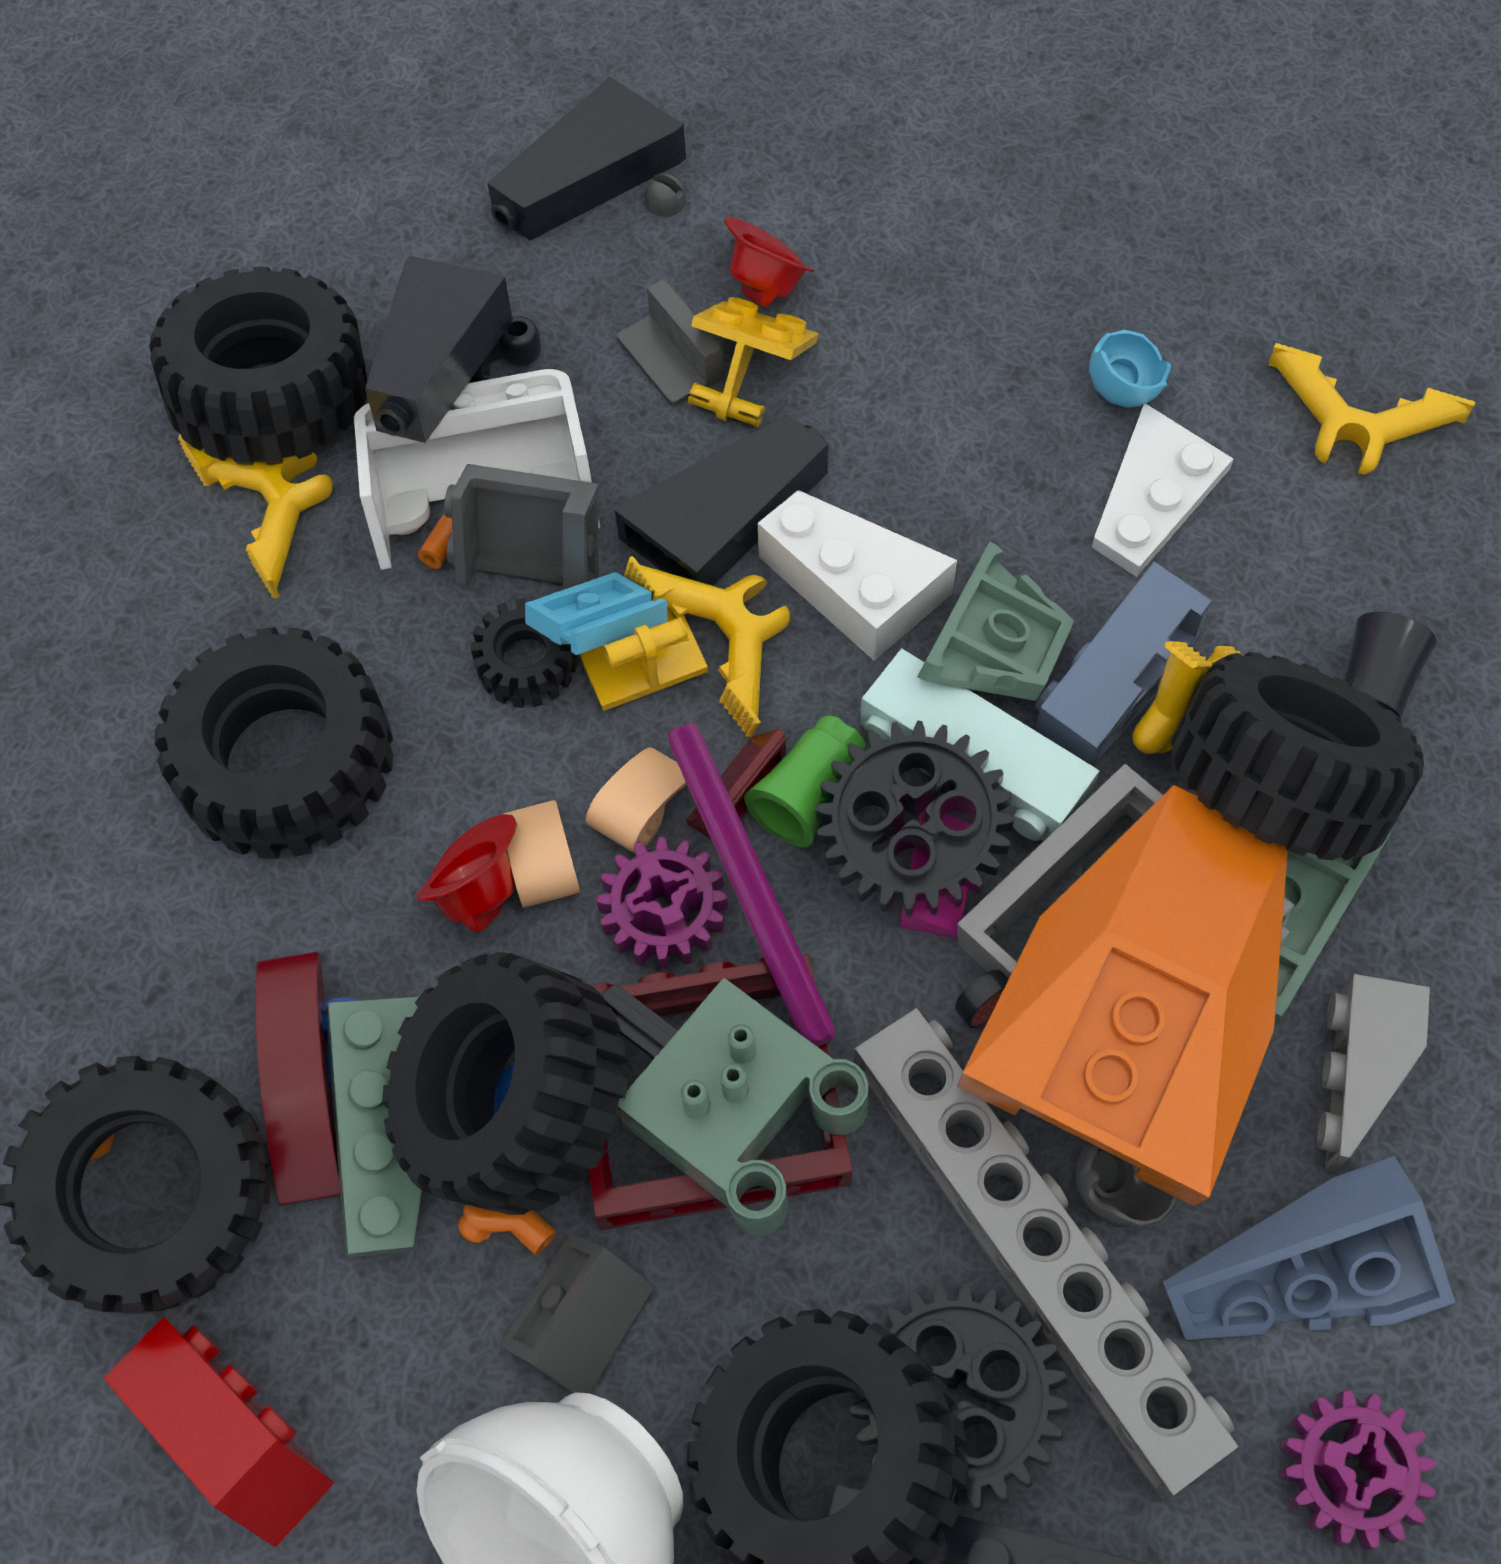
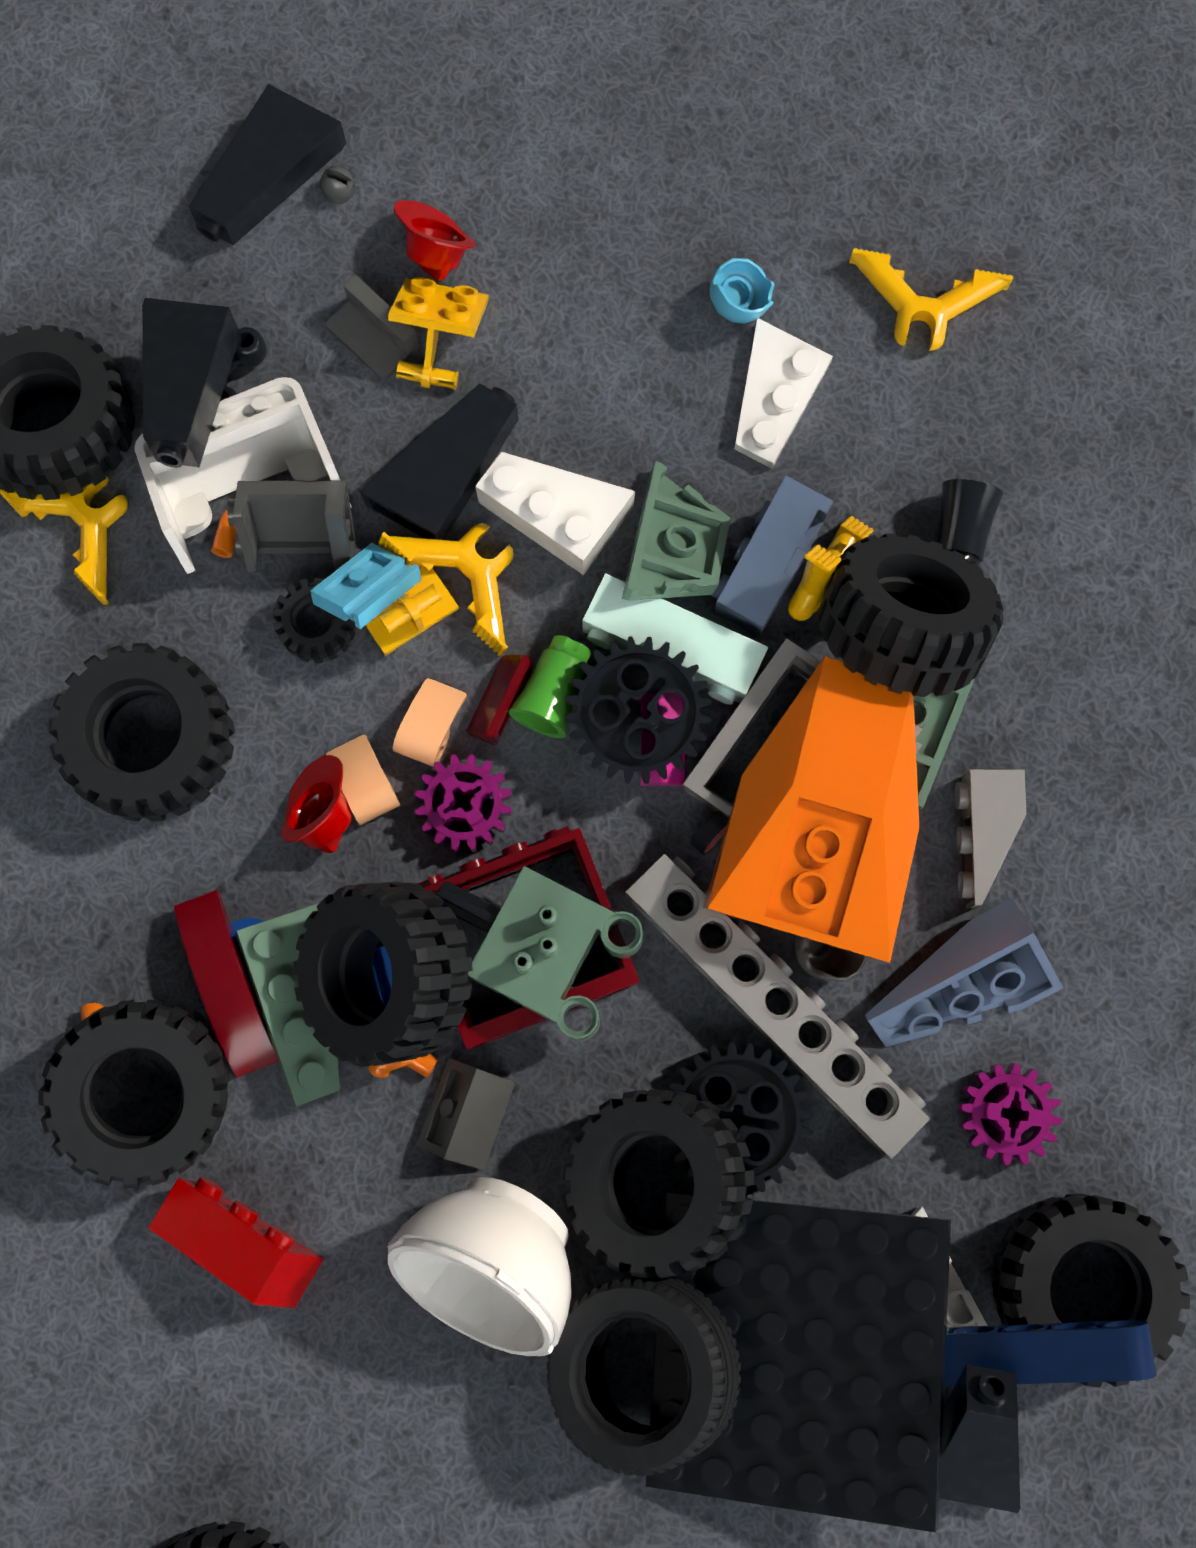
camera: 15 degrees left, 15 degrees up
(751, 886) = (526, 783): magenta axle -> none

